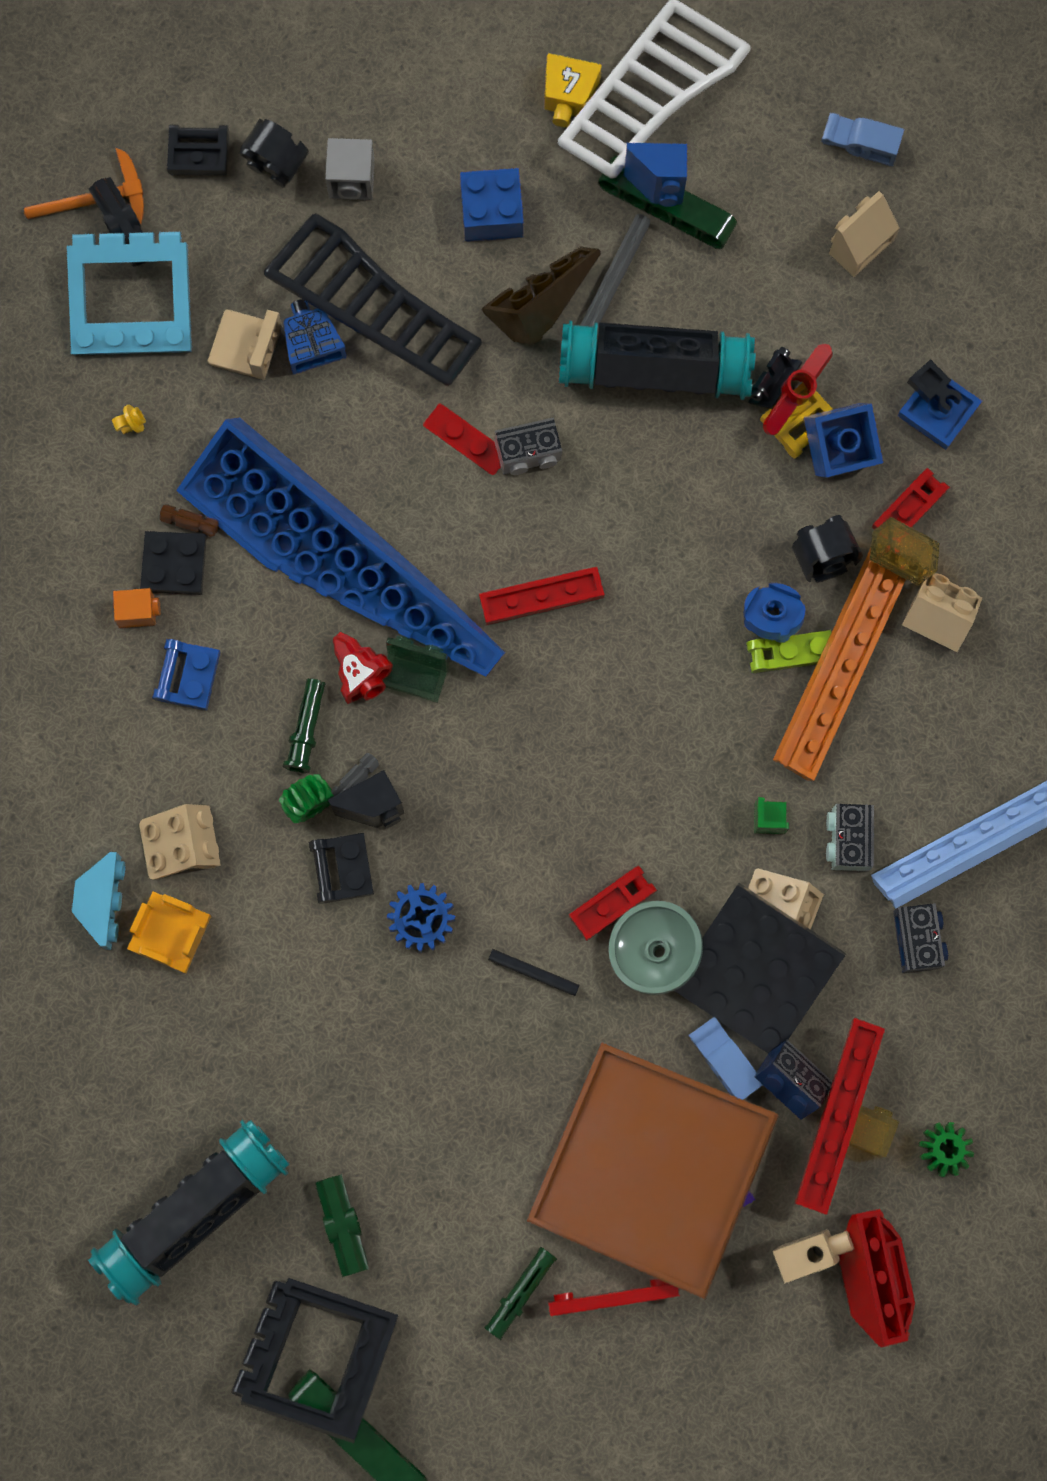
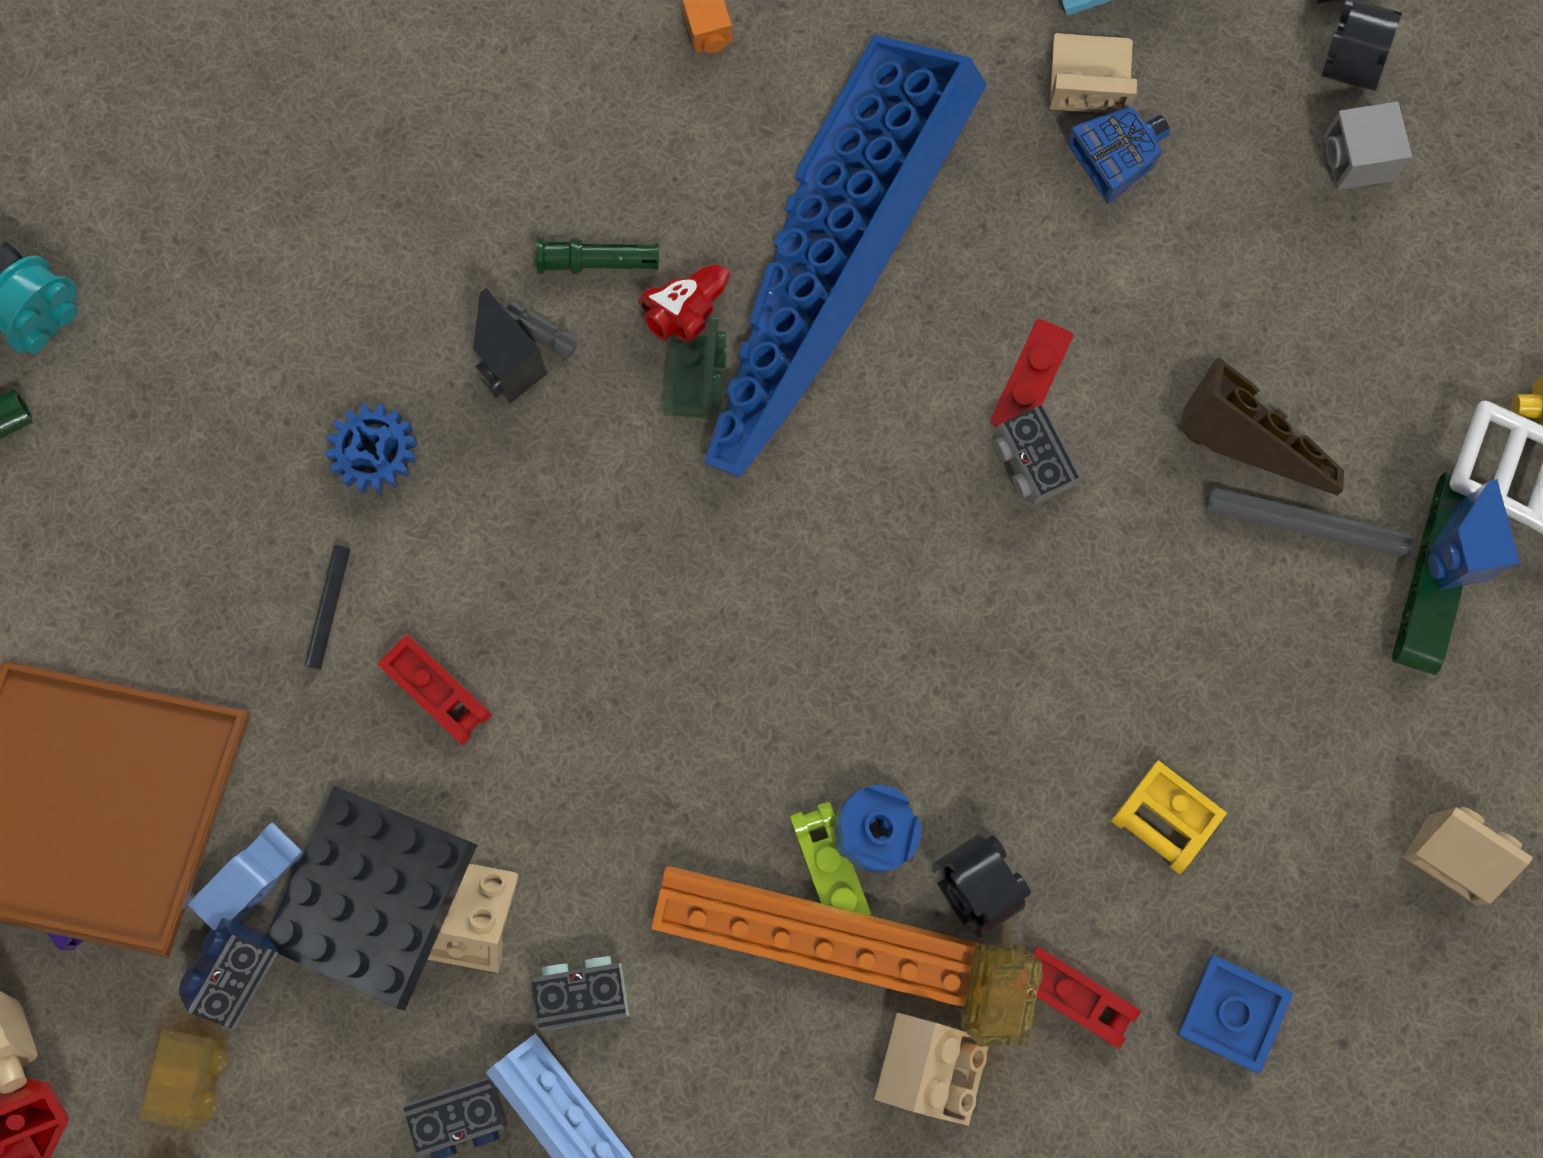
camera: 80 degrees right, 0 degrees up
(98, 898) = (325, 60): medium azure slope -> none
(168, 931) = (302, 149): light orange panel -> none
(173, 562) = (779, 54): black plate -> none
(179, 841) = (419, 140): tan bracket -> none
(189, 520) = (838, 59): reddish brown axle -> none
(196, 676) = (636, 113): blue plate -> none
(306, 798) = (498, 270): green gear -> none
(351, 864) = (425, 352): black plate -> none
(378, 277) = (1227, 219): black bar -> none
(491, 204) = (1368, 337): blue brick -> none
(541, 595) = (834, 515): red plate -> none
(643, 932) = (371, 731): sand green dish -> none
(657, 358) = (1201, 597): black brick -> none
(768, 386) = (1202, 764): black hinge -> none
(770, 817) = (589, 878): green panel -> none
(789, 399) = (1184, 792): red piece -> none
(839, 1116) = (180, 1042): red plate -> none
(843, 439) = (1147, 879): blue brick -> none
(932, 383) = (1264, 992): black plate -> none

